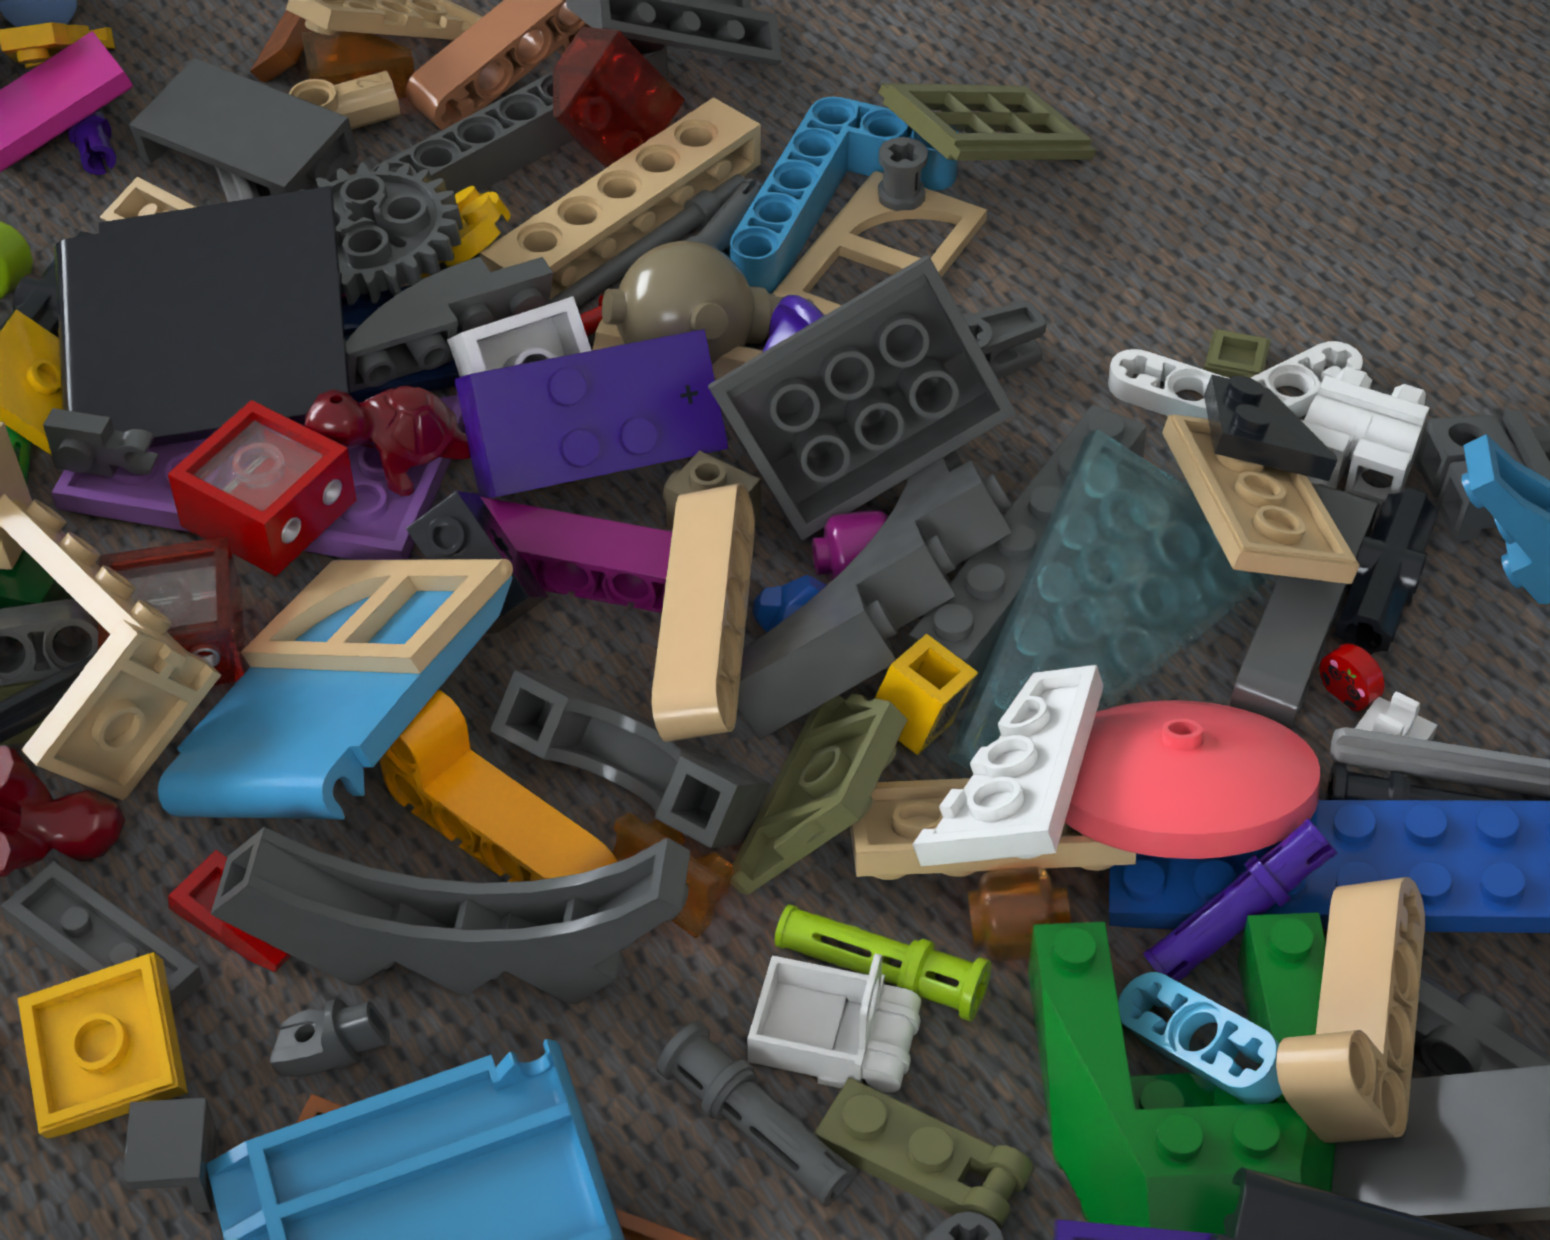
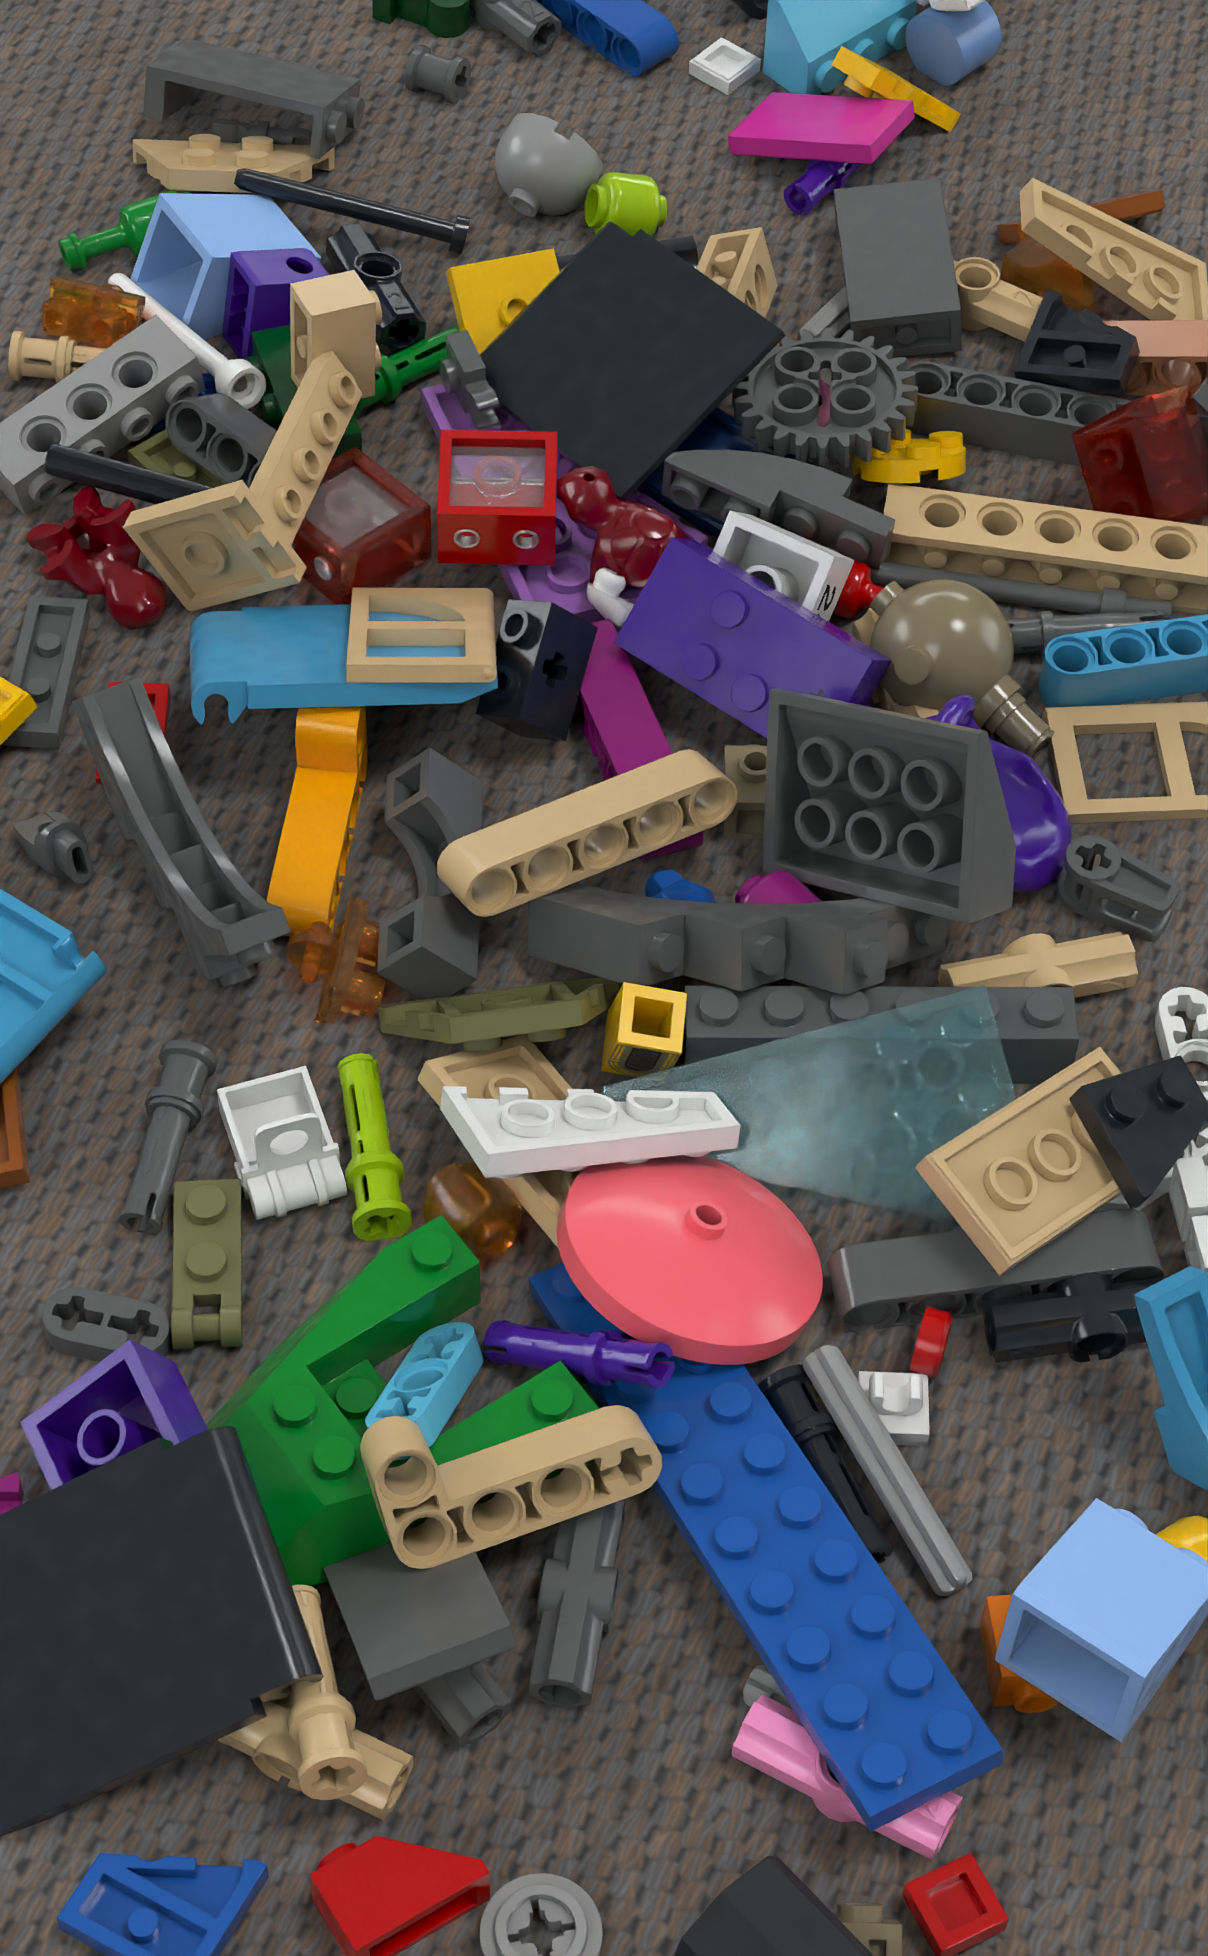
camera: 55 degrees right, 5 degrees up
(428, 481) = (605, 596): none -> white arm
(457, 78) = (1076, 350): none -> black wing
(1040, 423) = (1035, 960): none -> tan piece

